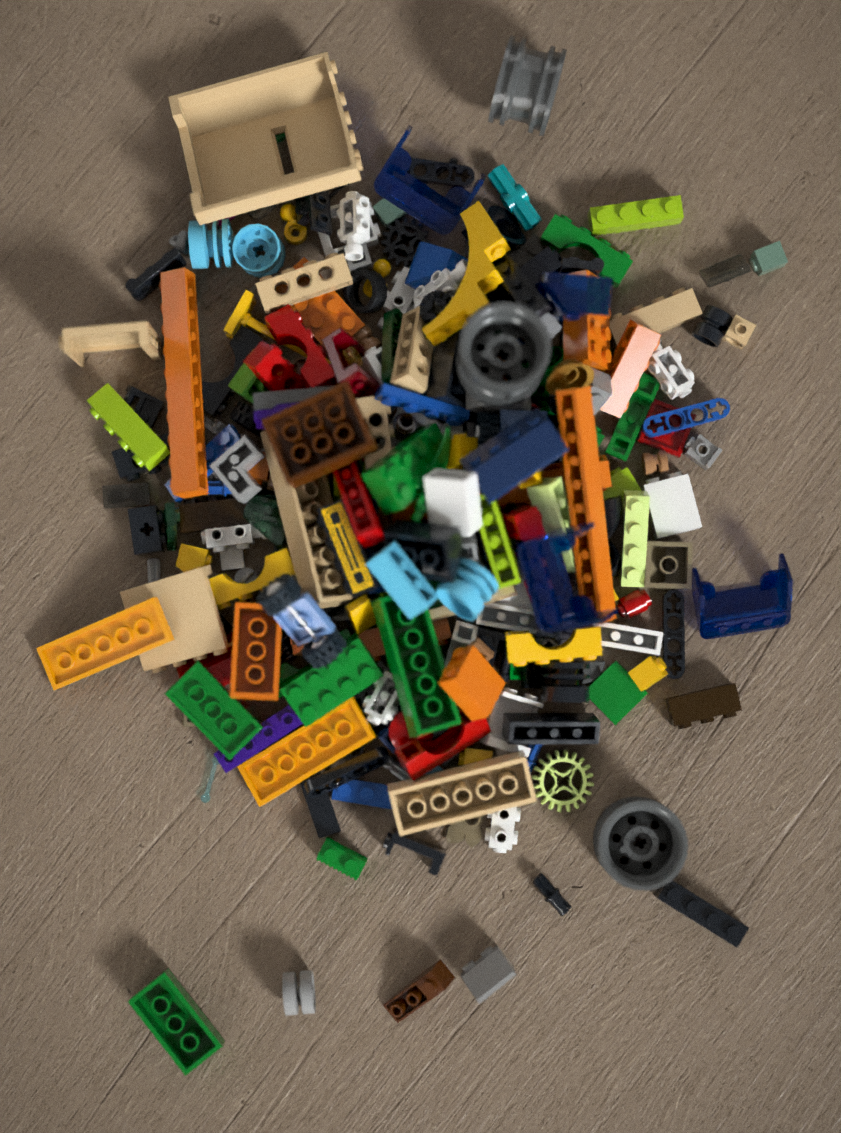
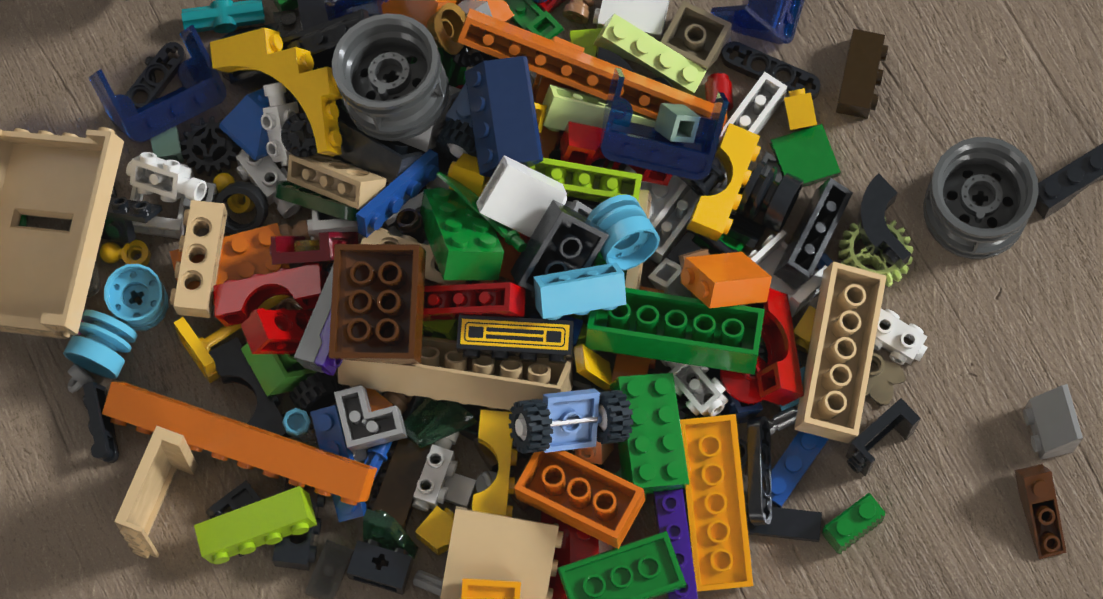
camera: 65 degrees left, 15 degrees down
(218, 417) = (296, 422): none -> medium azure tile
(551, 894) = (996, 320): black axle -> none
(575, 589) = (677, 122): none -> sand green brick
(579, 769) = (872, 224): none -> black arch

